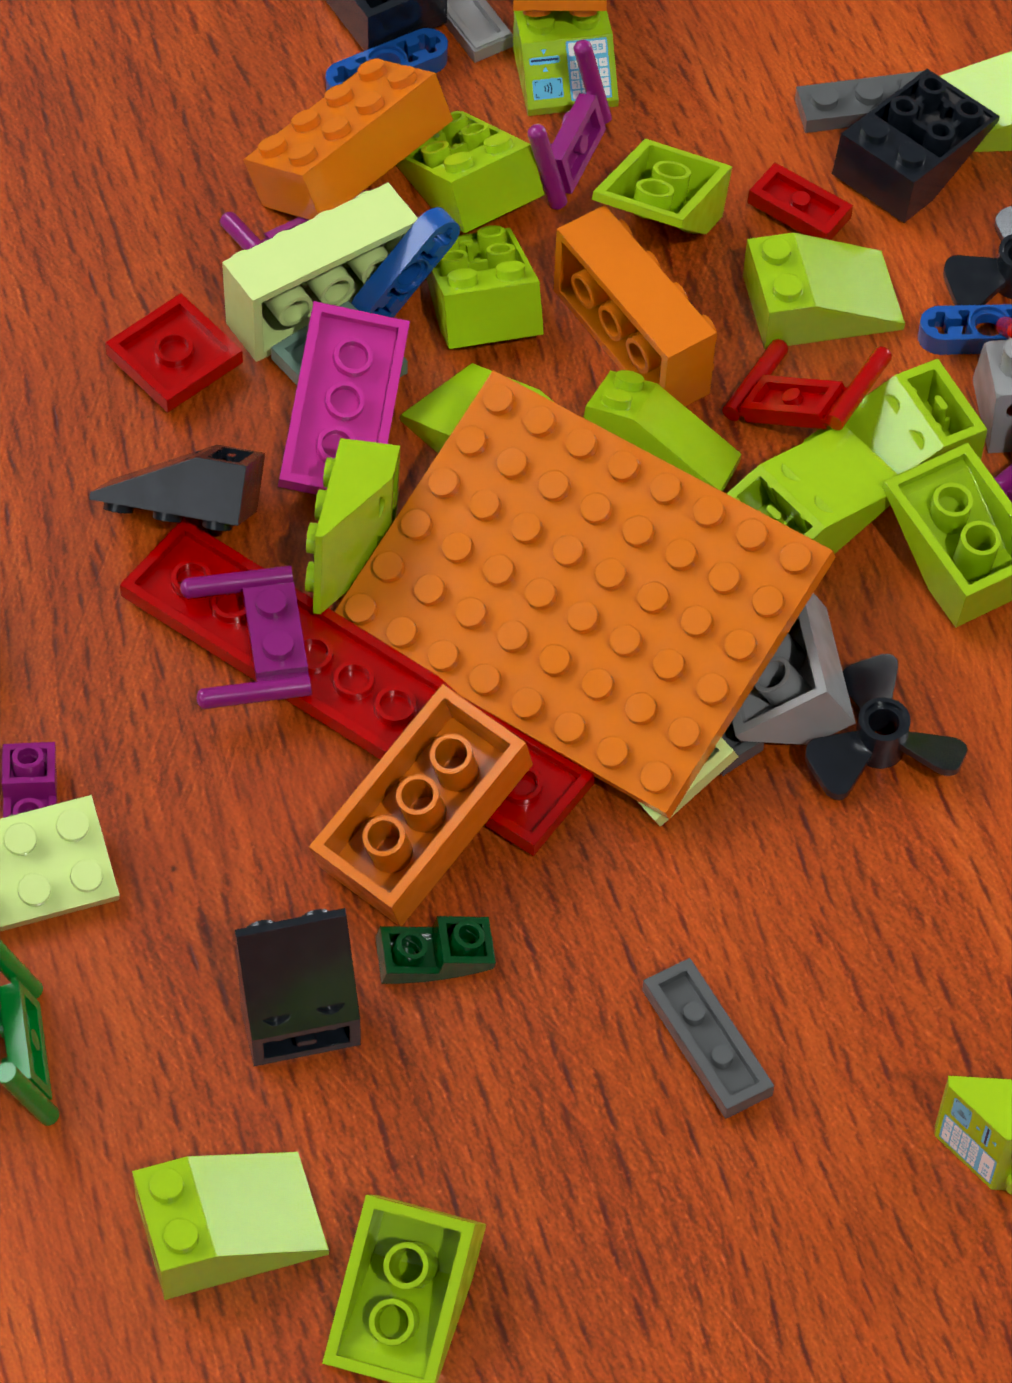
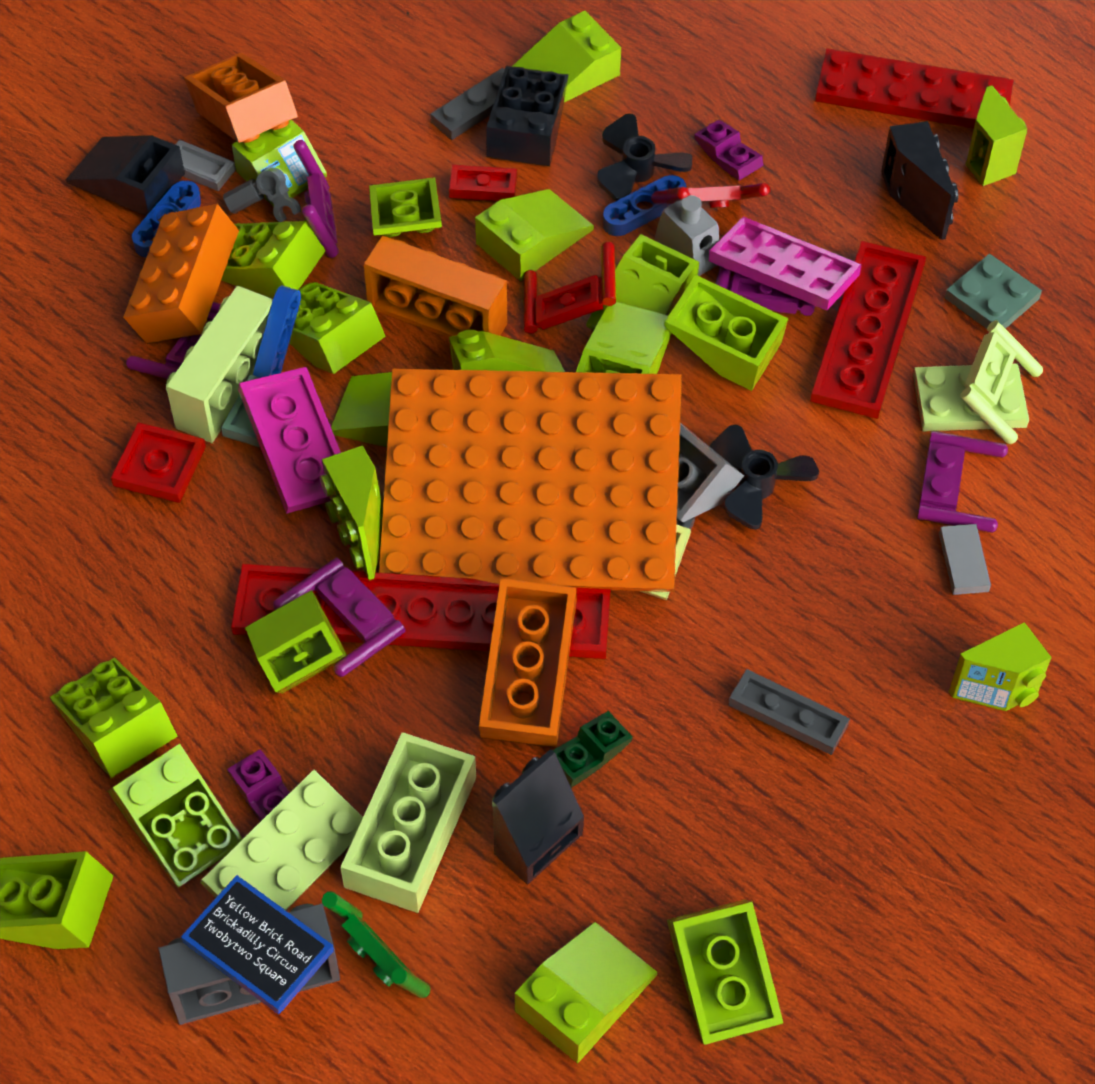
camera: 30 degrees left, 0 degrees up
(158, 914) = (409, 822): none -> yellowish green brick
(171, 641) = (295, 643): none -> lime slope
(208, 484) = (240, 535): black slope -> none
(526, 79) = (268, 183): none -> dark grey bar

